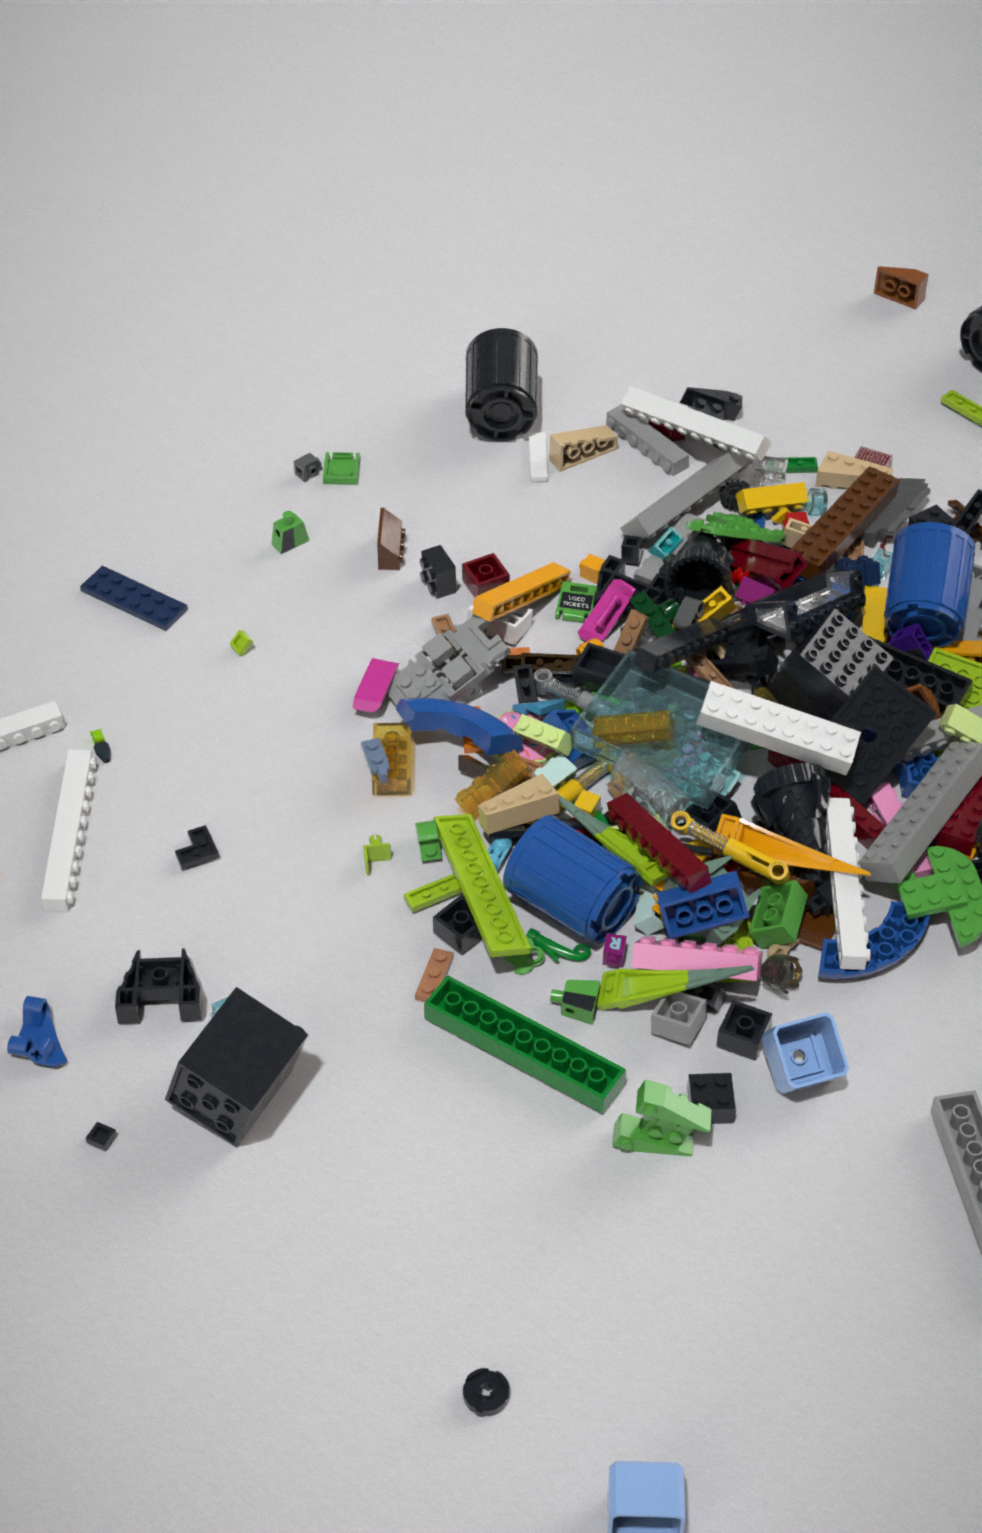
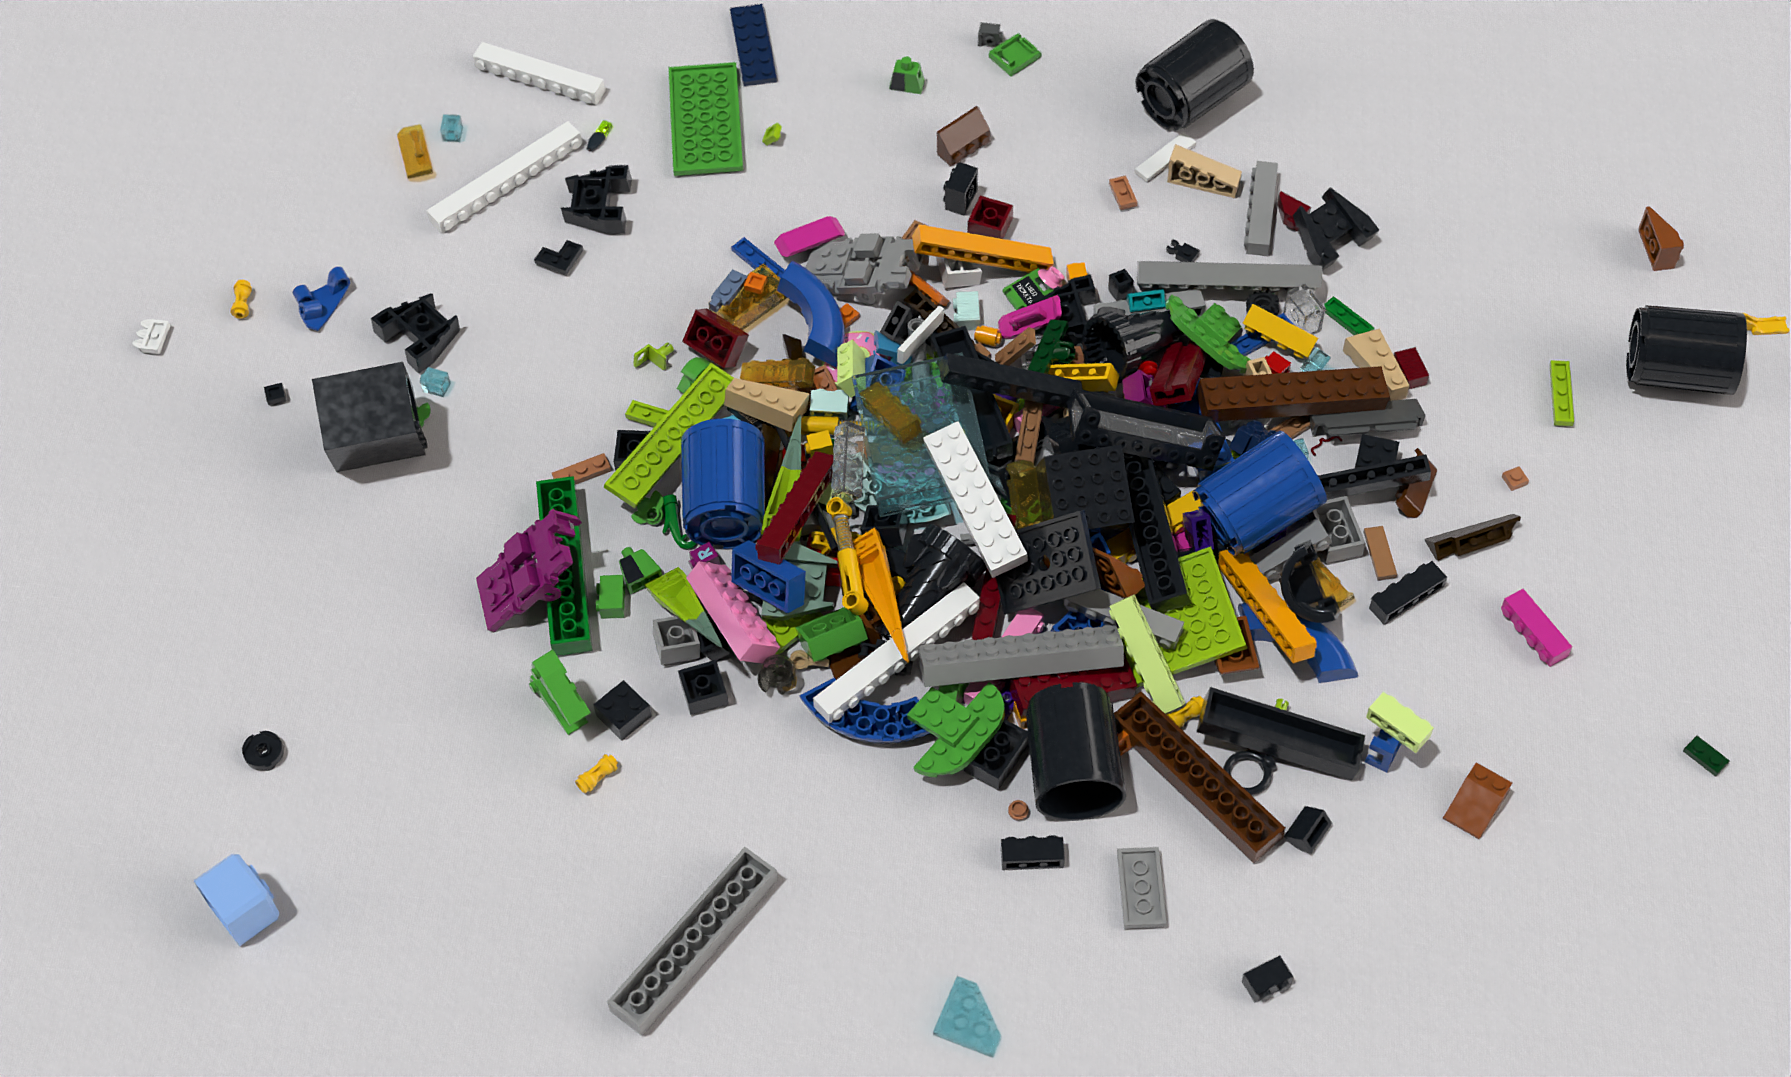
camera: 50 degrees right, 10 degrees up
(170, 787) = (592, 199): none -> black wedge
(172, 671) = (705, 119): none -> bright green plate
(348, 732) = (755, 257): none -> blue tile
(391, 737) = (755, 283): none -> orange plate
(409, 800) = (715, 338): none -> dark red brick
(505, 1096) = (512, 590): none -> magenta piece
(544, 496) = (1123, 192): none -> nougat plate
(552, 642) = (967, 309): none -> light aqua brick
(561, 676) = (920, 335): none -> white tile
(581, 578) = (1051, 277): none -> bright pink piece
(588, 1032) = (611, 596): none -> bright green brick
(636, 503) = (1183, 253): none -> black plate
(688, 613) = (1065, 364): dark grey beam -> none
(696, 423) = (1288, 222): white brick -> none
(756, 1167) = (590, 778): none -> yellow piece
(778, 517) = (1278, 349): yellow tile -> none
(821, 1050) = (687, 734): light blue plate -> none

